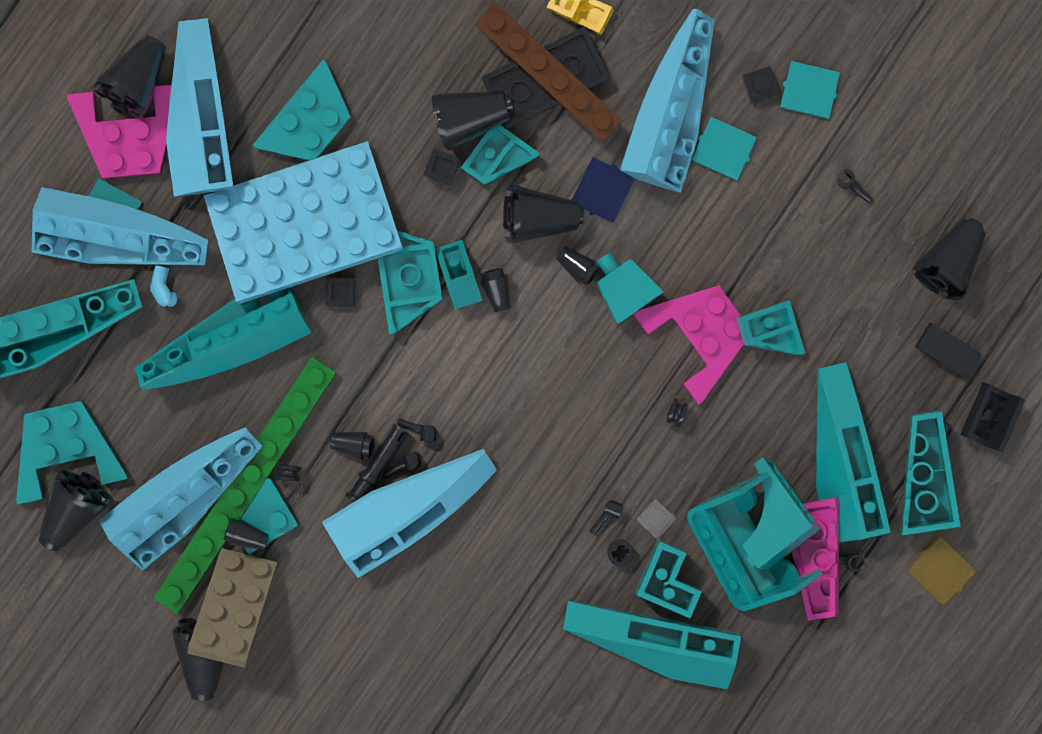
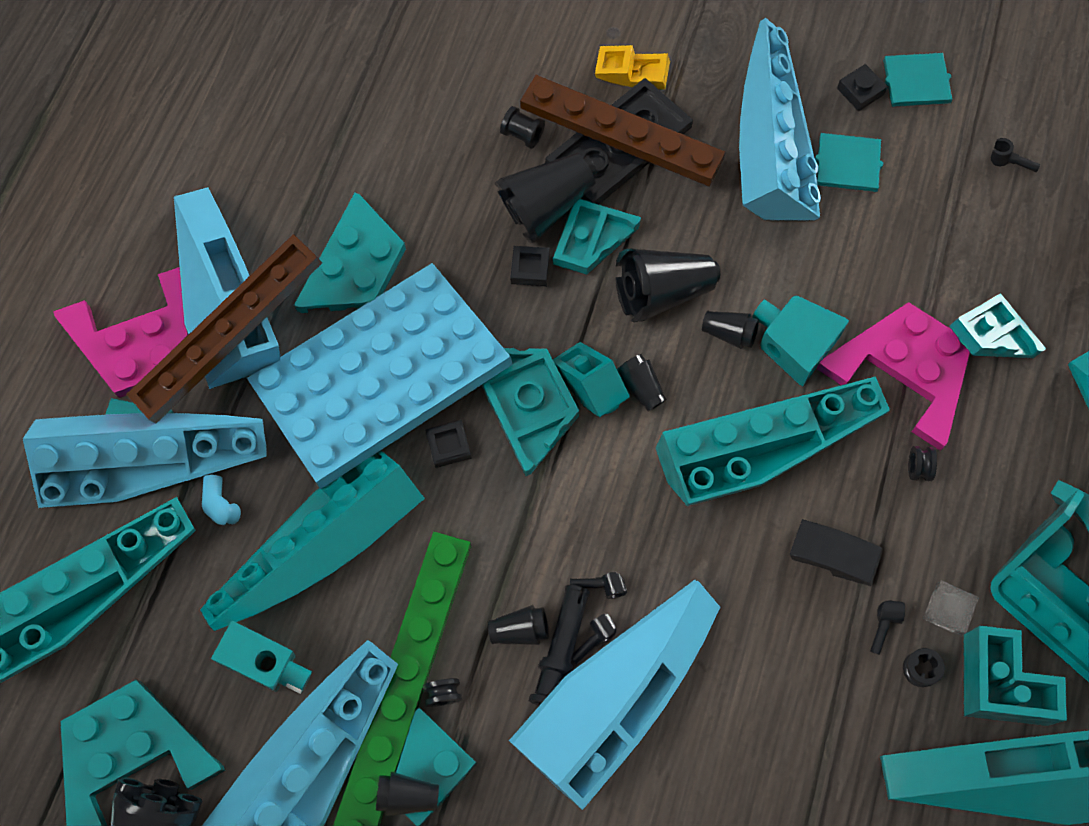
camera: 15 degrees left, 20 degrees down
(133, 77) = (127, 269): black cone -> none
(160, 406) = (244, 651): none -> teal torso
(196, 166) = (224, 329): none -> reddish brown plate
(472, 40) = (522, 127): none -> black bush
(568, 366) = (765, 441): none -> teal wedge
(590, 457) = (836, 551): none -> black slope
(603, 189) = (729, 240): clear blue piece -> none

